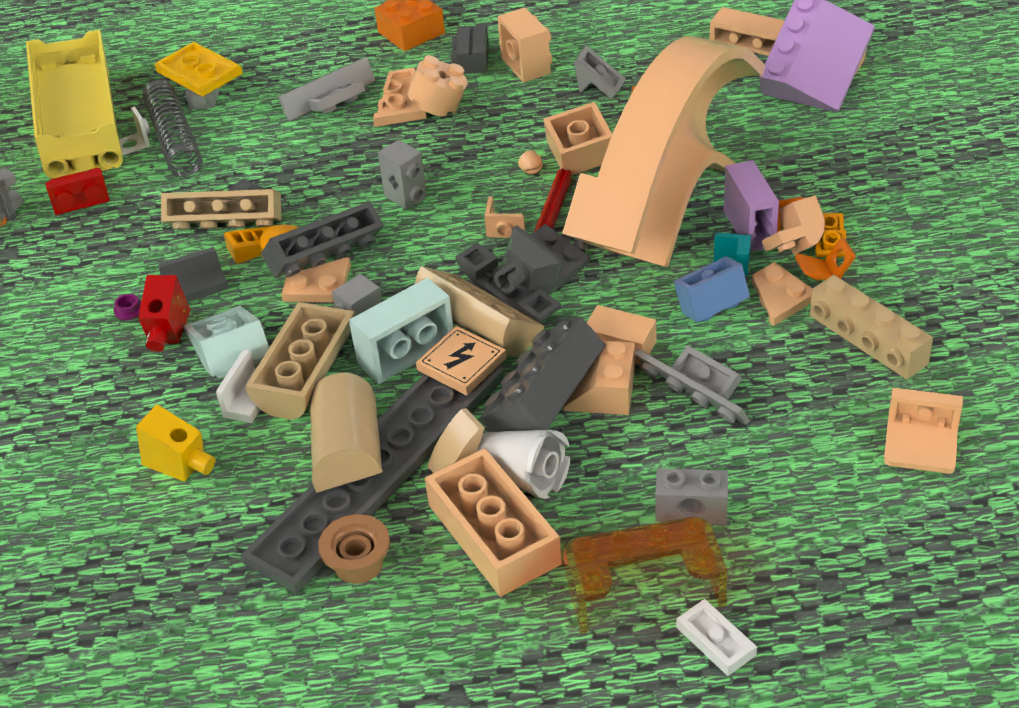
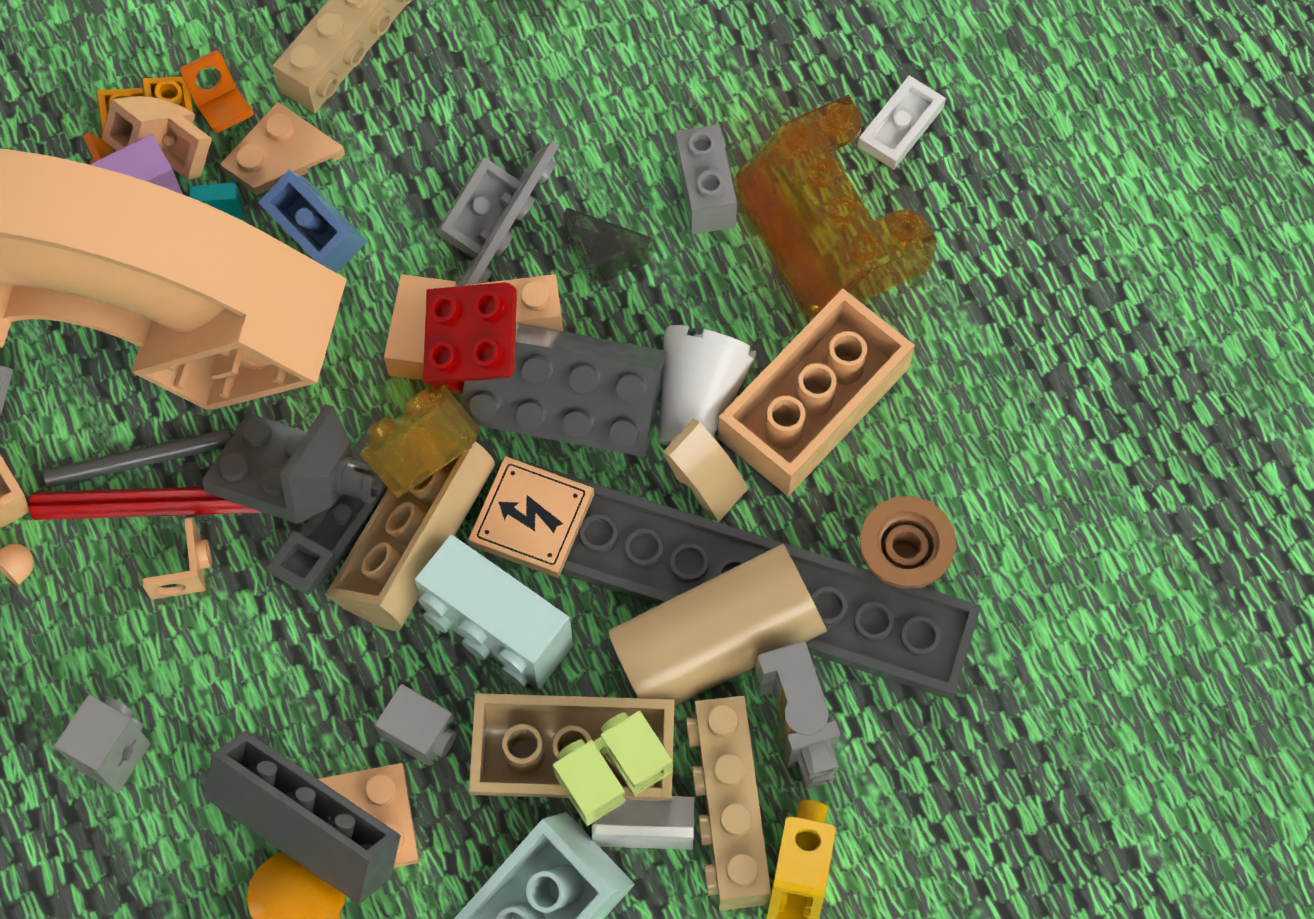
camera: 110 degrees left, 25 degrees up
(242, 425) = (732, 803): none -> tan brick
(266, 461) = (803, 712): none -> light grey hips
(271, 351) = (633, 752): none -> yellowish green piece
(521, 293) = (420, 440): none -> clear yellow brick
(596, 313) = (469, 334): none -> red bracket
(654, 430) = (604, 247): none -> clear smoke slope

